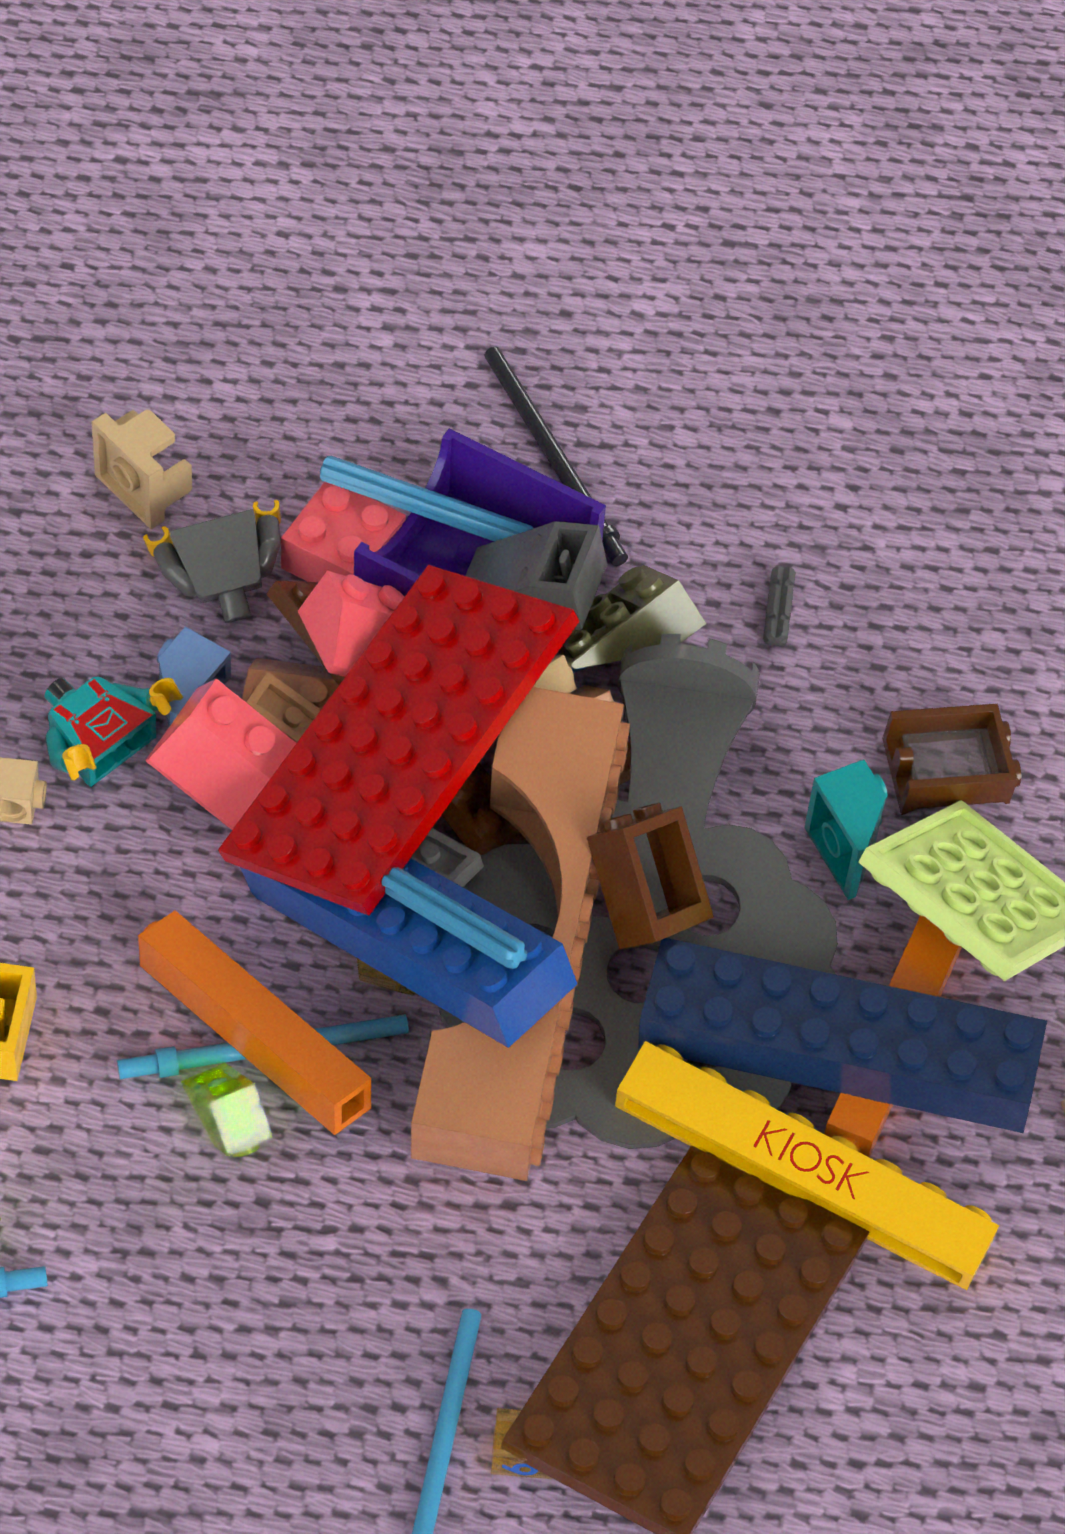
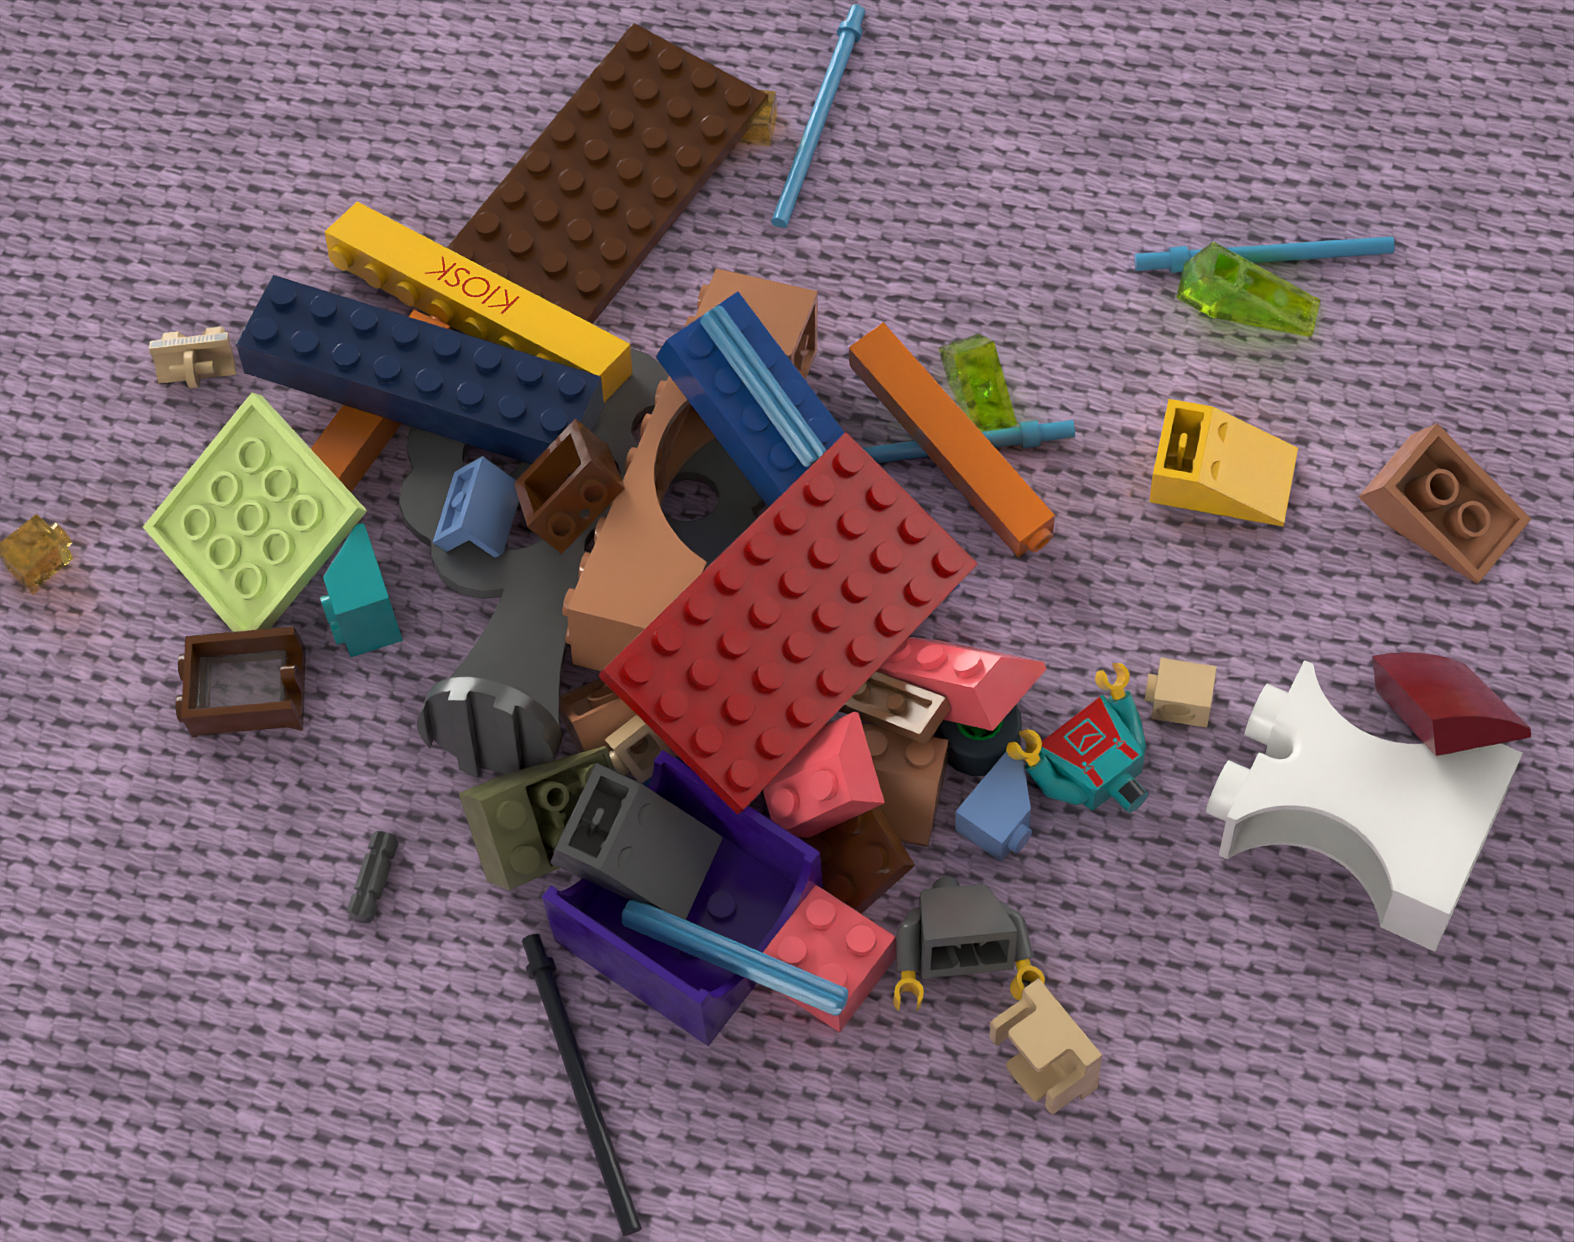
camera: 165 degrees left, 5 degrees up
(748, 898) = (478, 508): none -> medium blue panel

